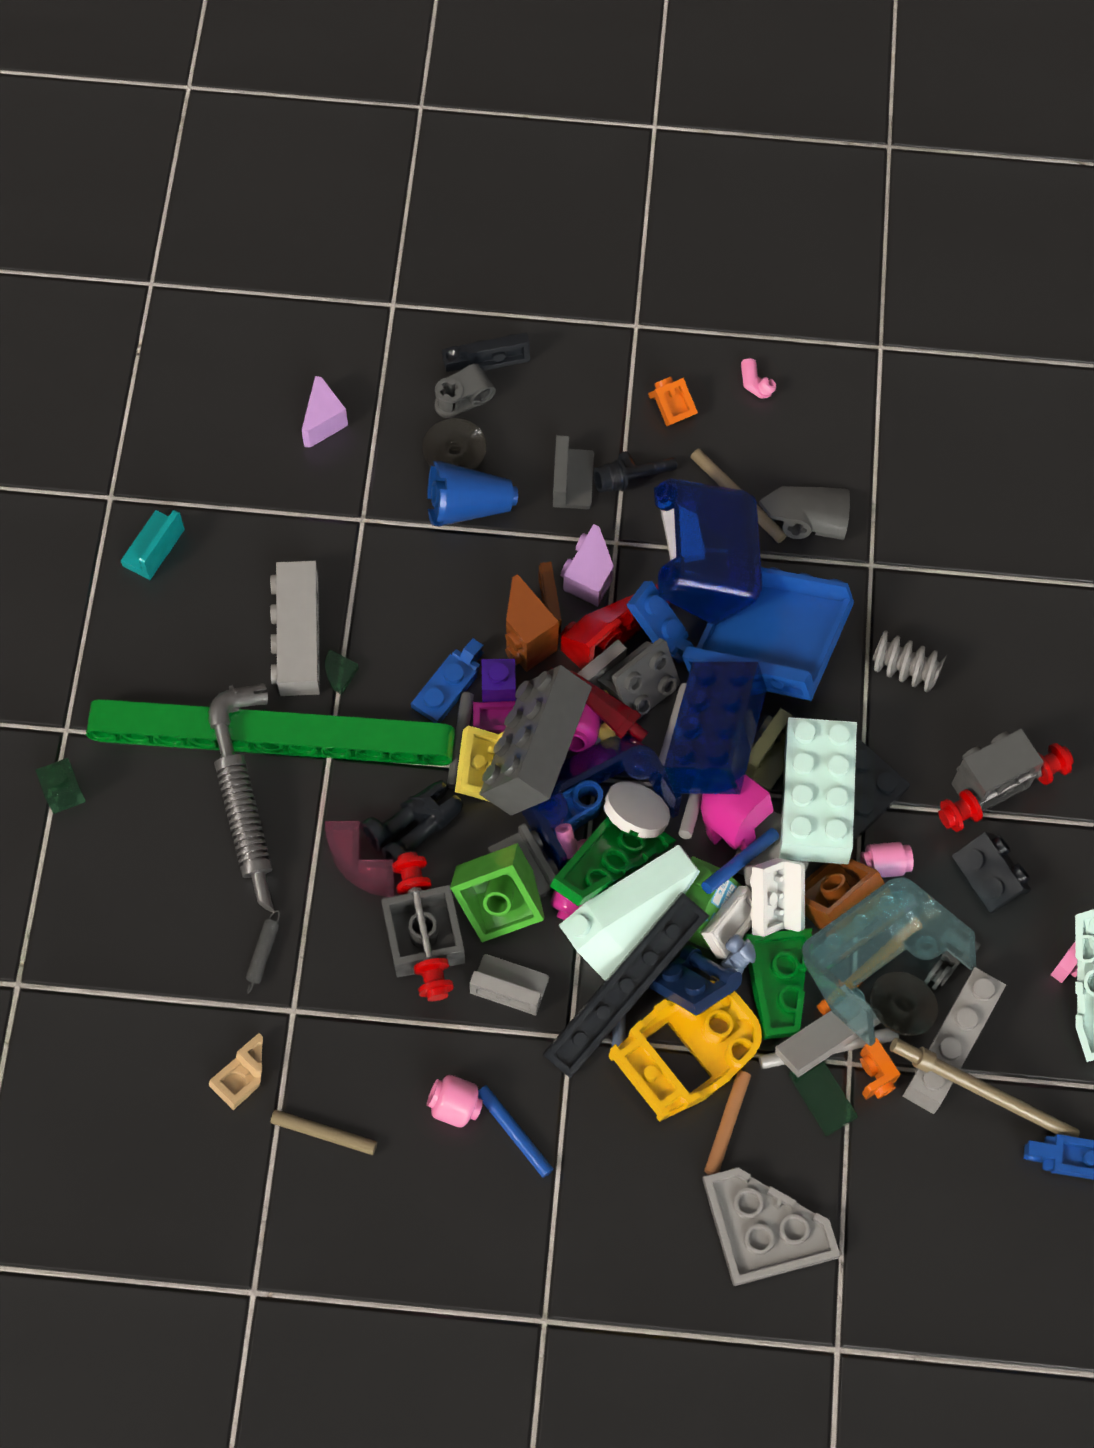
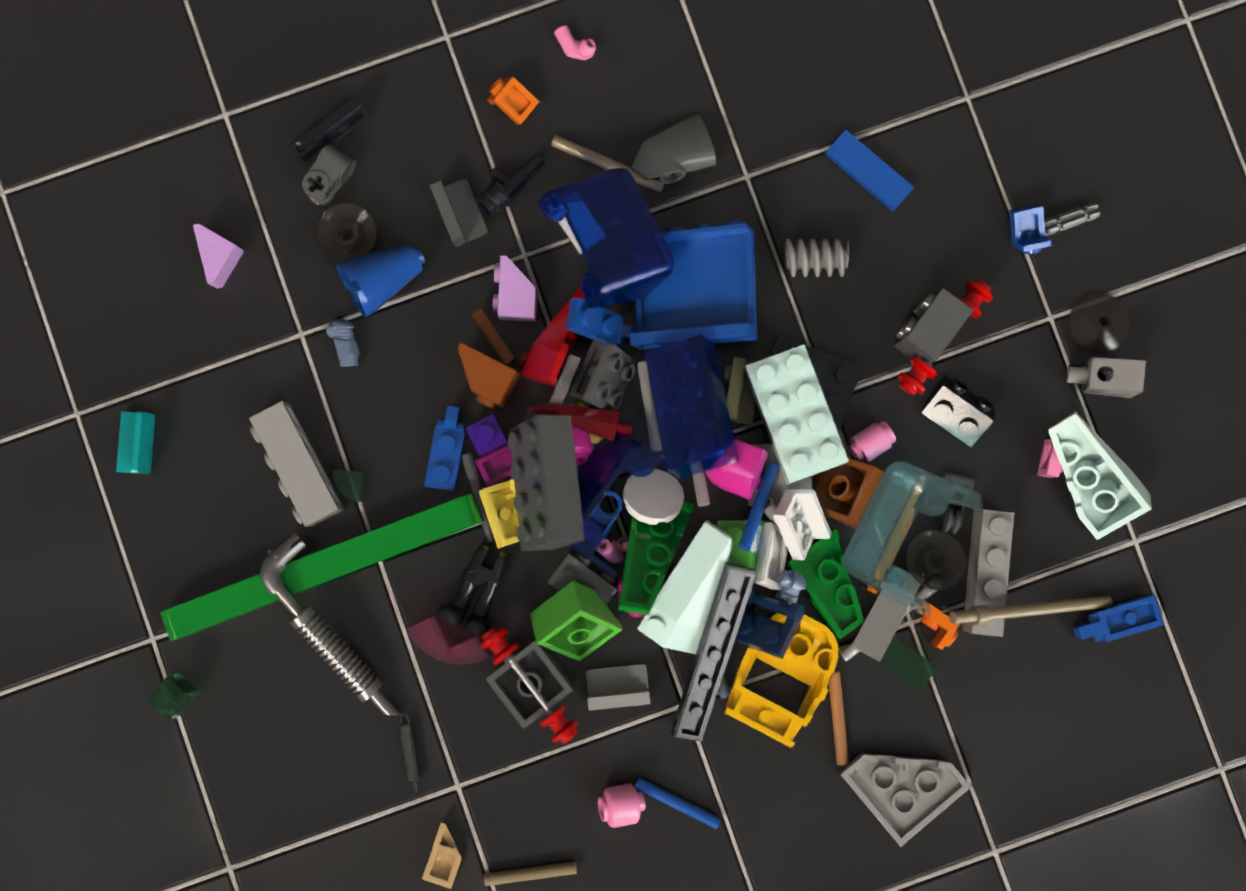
camera: 20 degrees left, 20 degrees up
(401, 545) = (345, 344): none -> sand blue arm
(997, 609) = (869, 170): none -> blue tile

